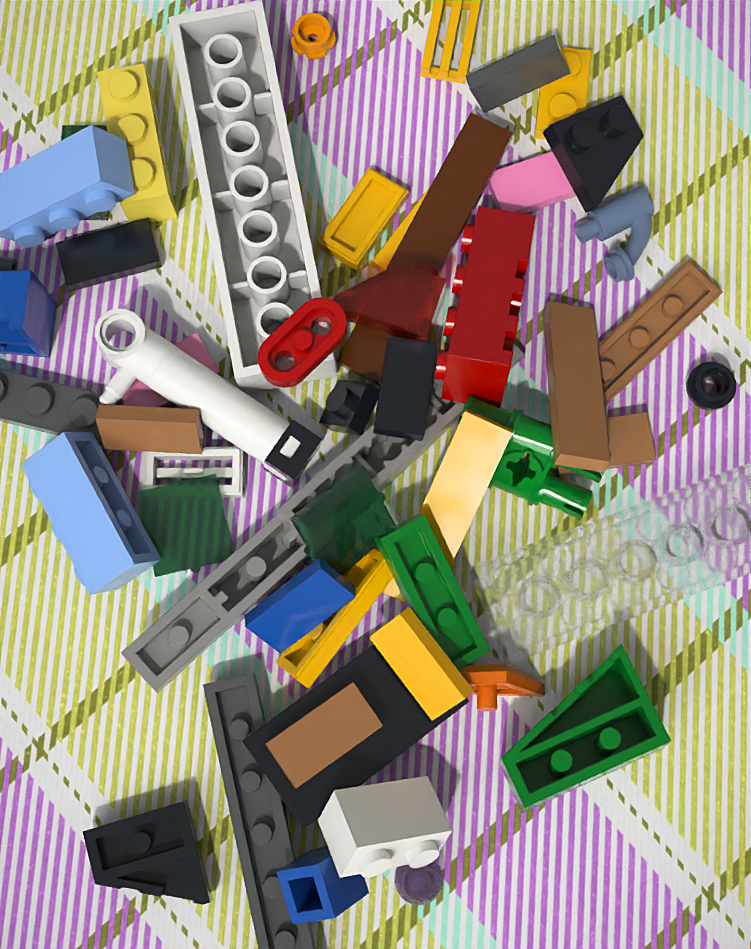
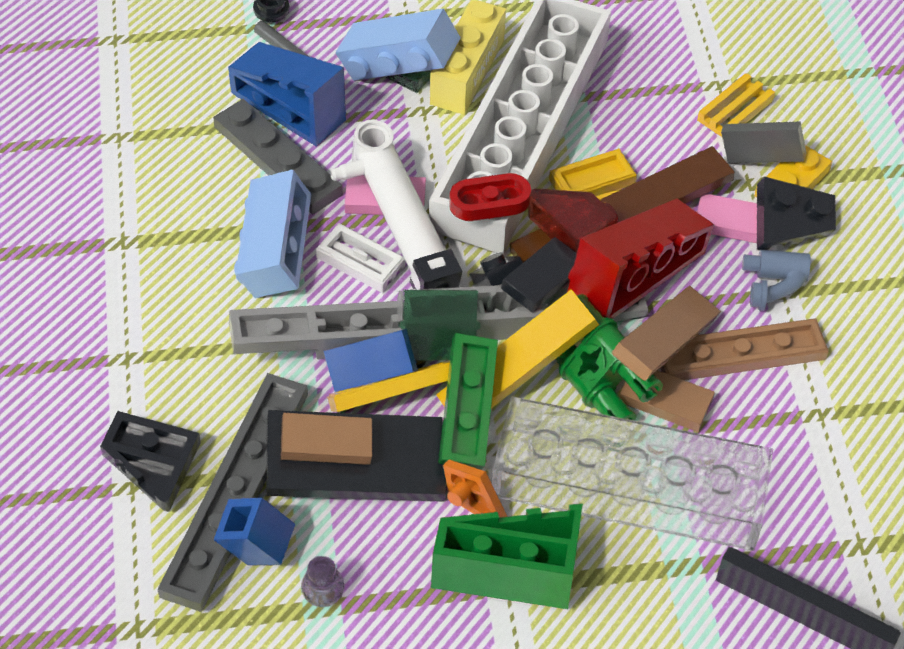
camera: 30 degrees right, 25 degrees down
(108, 254) = (402, 108): black tile -> none
(150, 429) = (351, 207): medium nougat tile -> none
(186, 524) = (330, 276): clear green piece -> none
(308, 26) = (636, 58): light orange plate -> none
(384, 826) = (325, 515): white brick -> none
(421, 664) = (427, 437): yellow tile -> none
(717, 374) = (779, 395): black plate -> none

